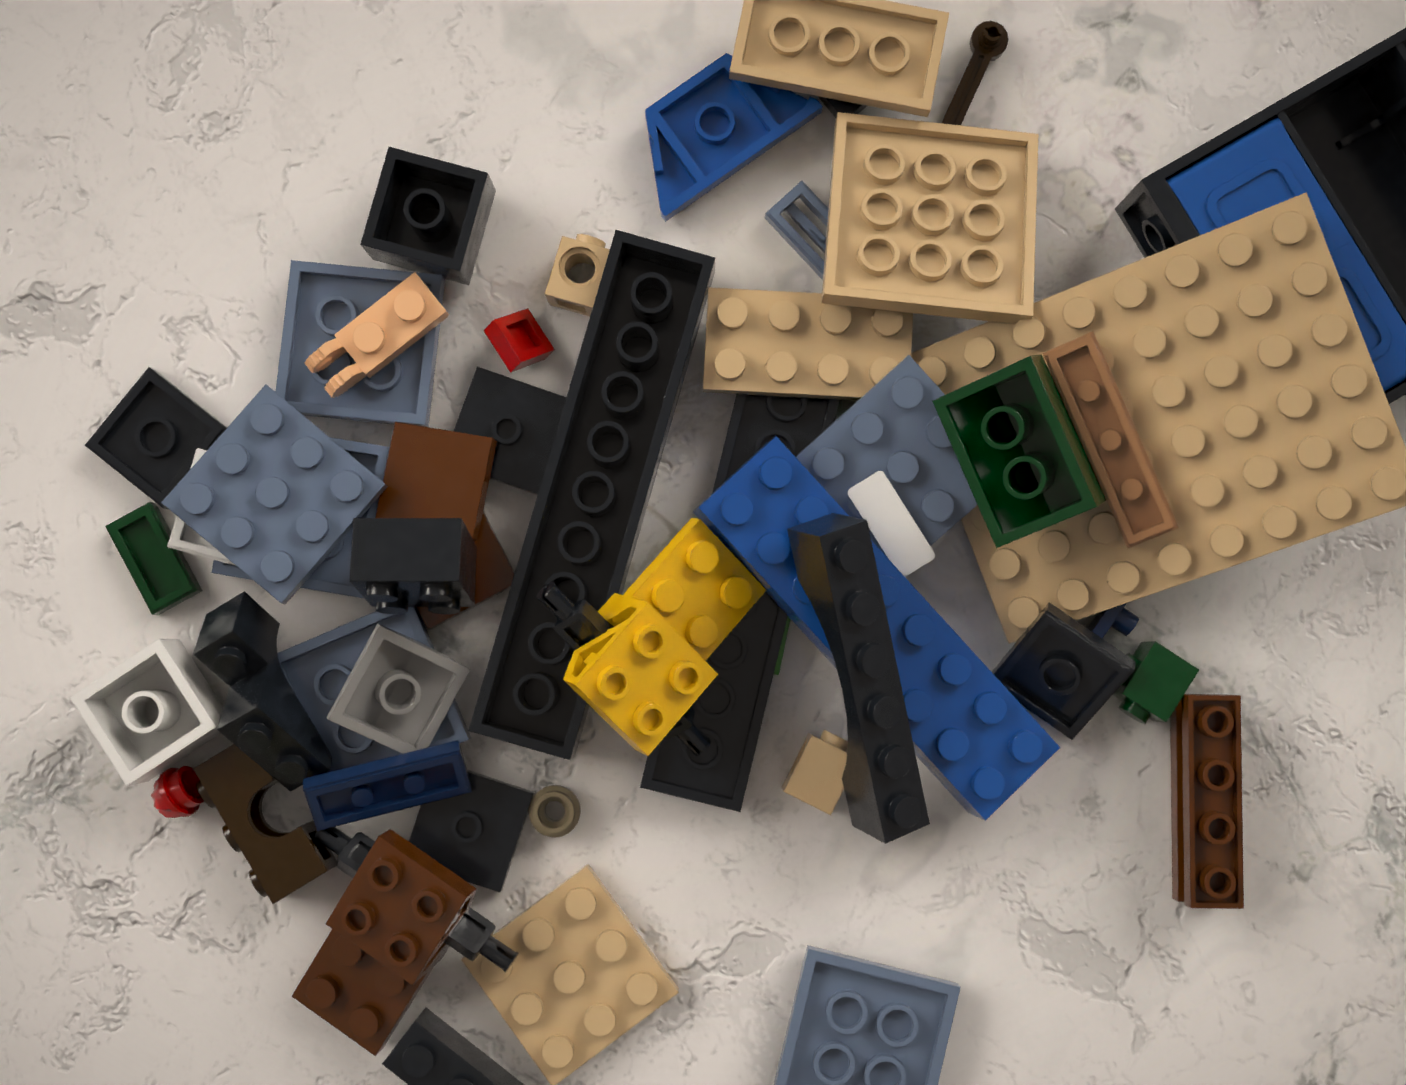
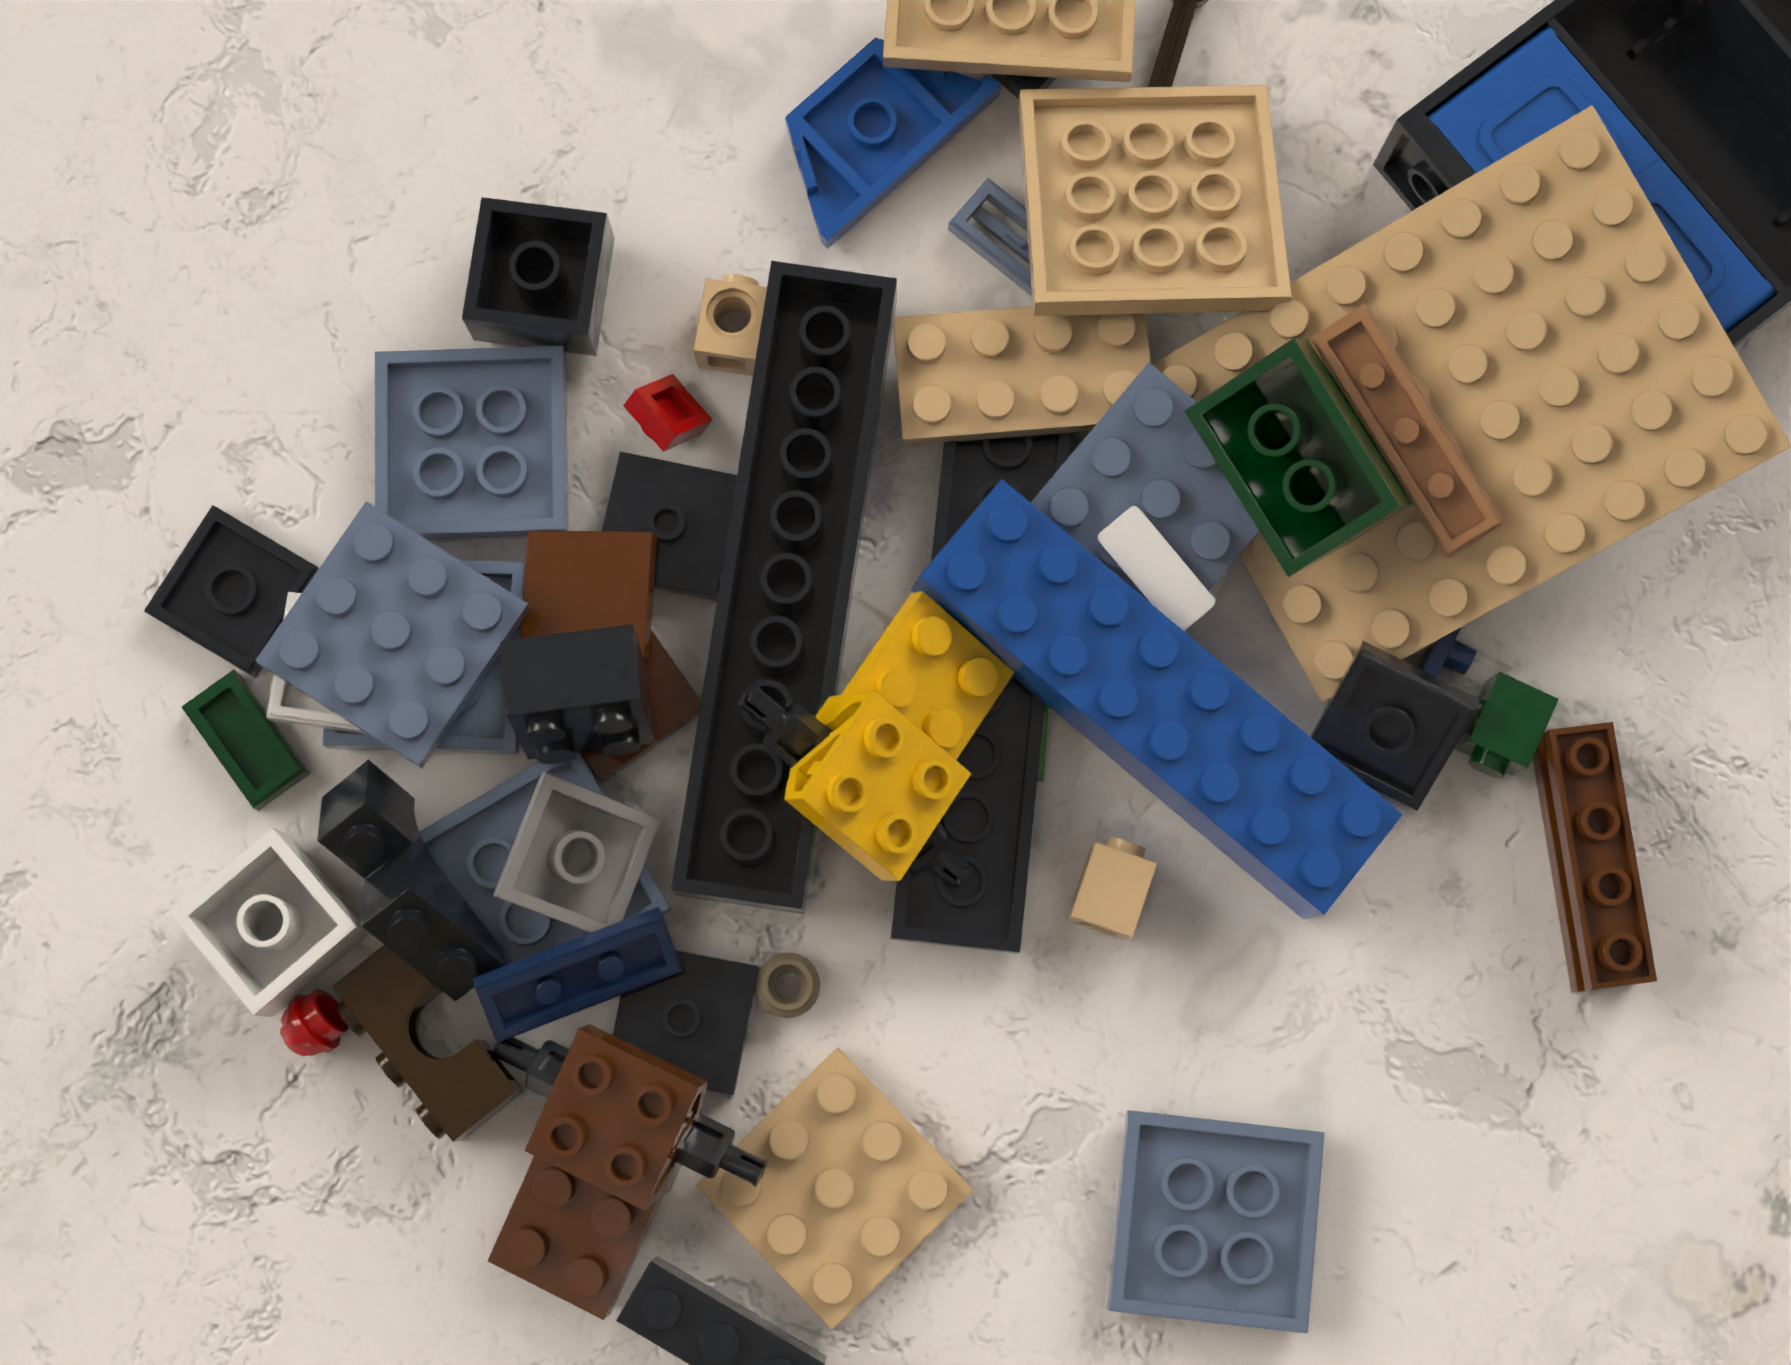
camera: 10 degrees left, 5 degrees down
(379, 334) = (497, 425): light nougat hinge -> none
(843, 585) = (1111, 646): black arch -> none

